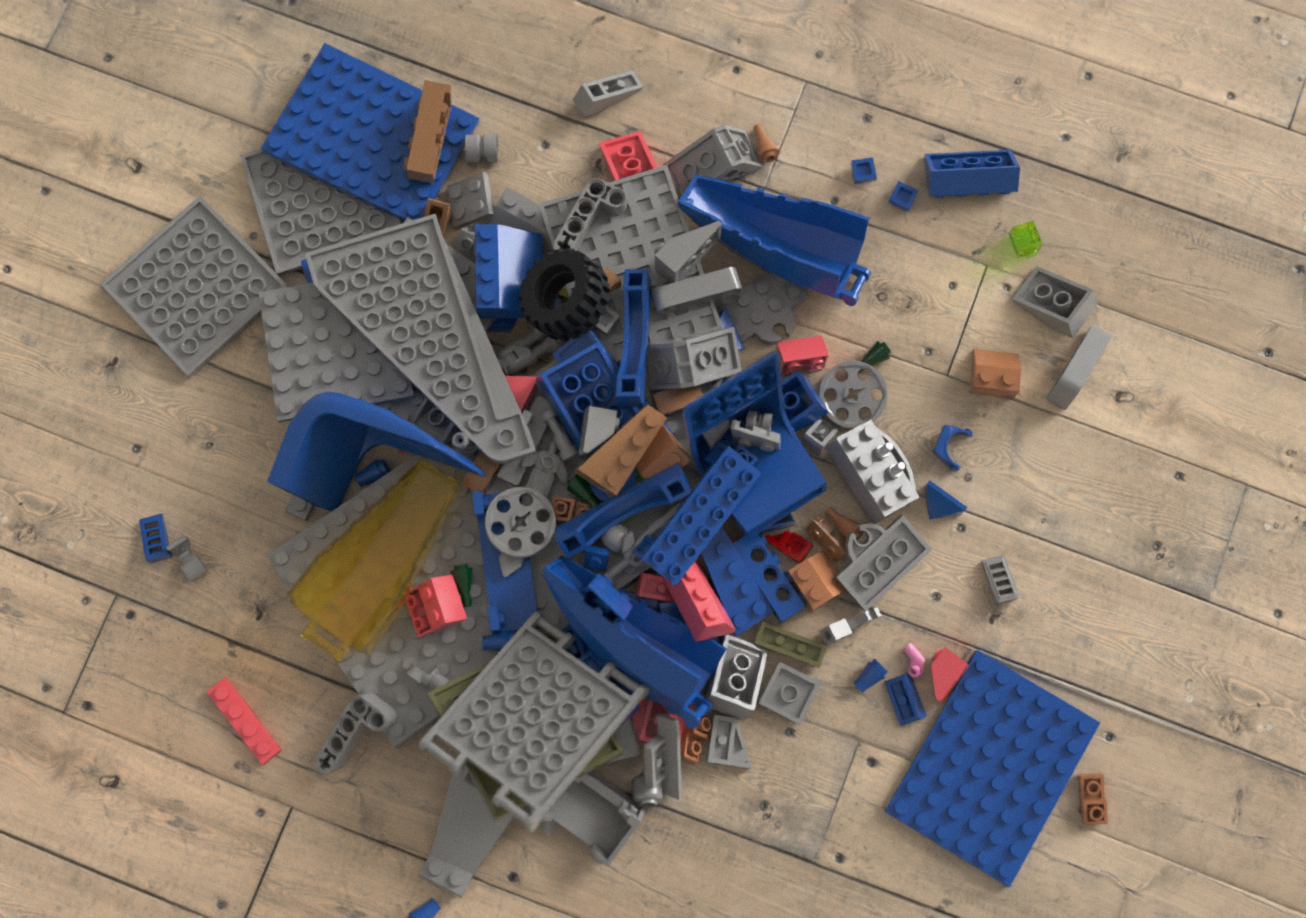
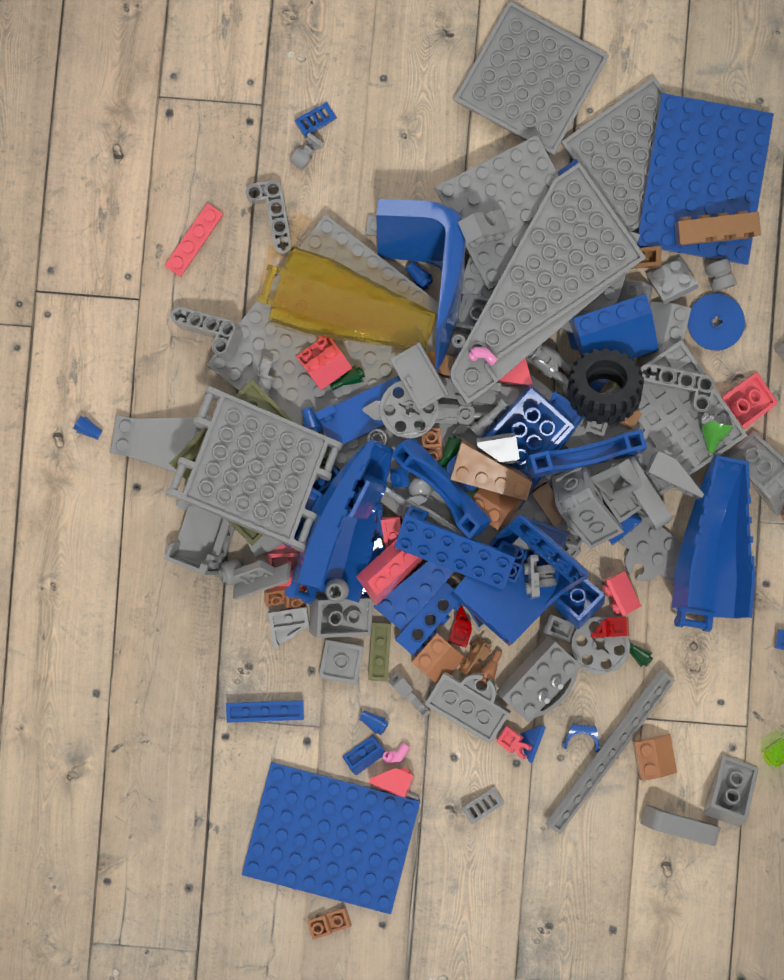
camera: 70 degrees right, 10 degrees up
(251, 617) = (279, 218): none -> light grey beam
(340, 372) = (484, 228): none -> light grey arch
(483, 415) = (482, 352): none -> bright pink arm
(486, 495) = (419, 375): none -> light grey door
(524, 155) = (727, 312): none -> blue piece
(537, 569) = (378, 435): none -> light grey wheel
(650, 194) = (715, 429): none -> bright green hat
(665, 297) = (622, 468): none -> light grey tile
(707, 668) = (336, 590): none -> light grey piece
(822, 800) = (265, 711): none -> blue gear
(837, 373) = (612, 627): none -> red slope
(935, 524) = (512, 742): none -> coral plate
(976, 419) = (610, 751): none -> light grey plate

